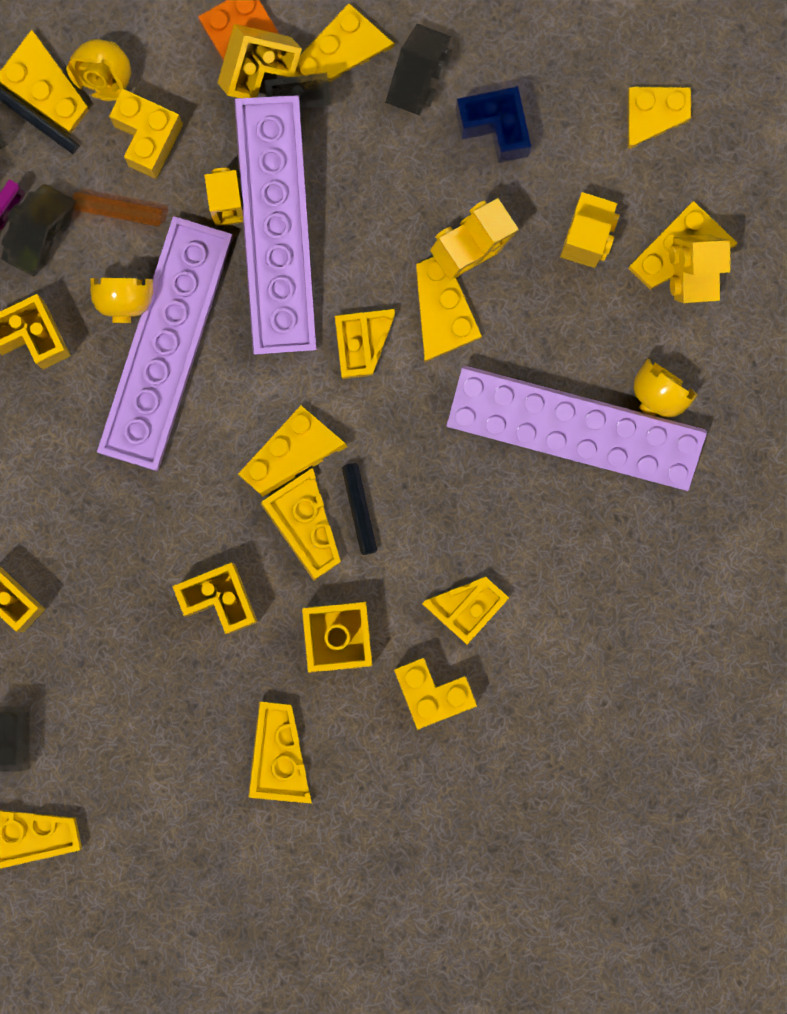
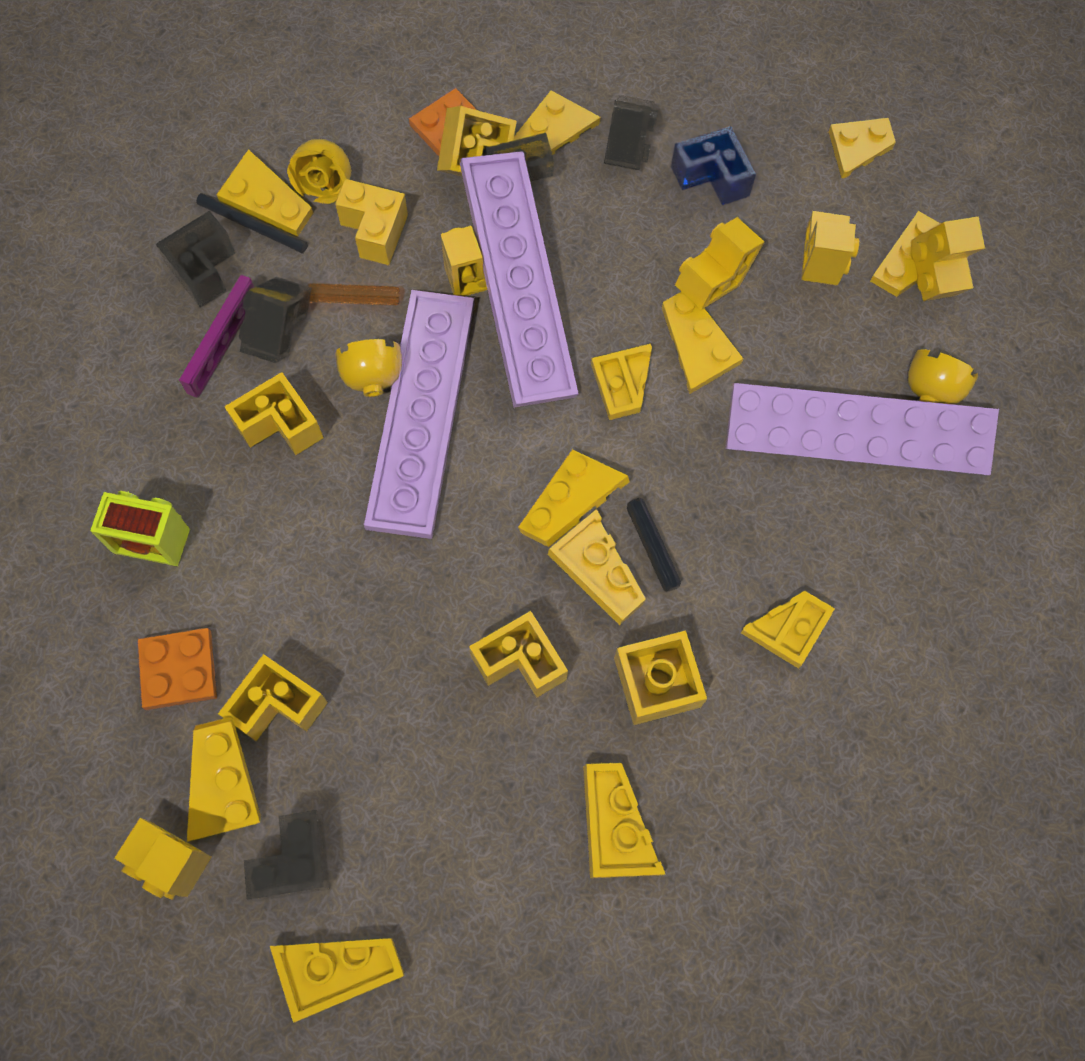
camera: 10 degrees left, 15 degrees down
(432, 703) = (774, 733): yellow brick -> none

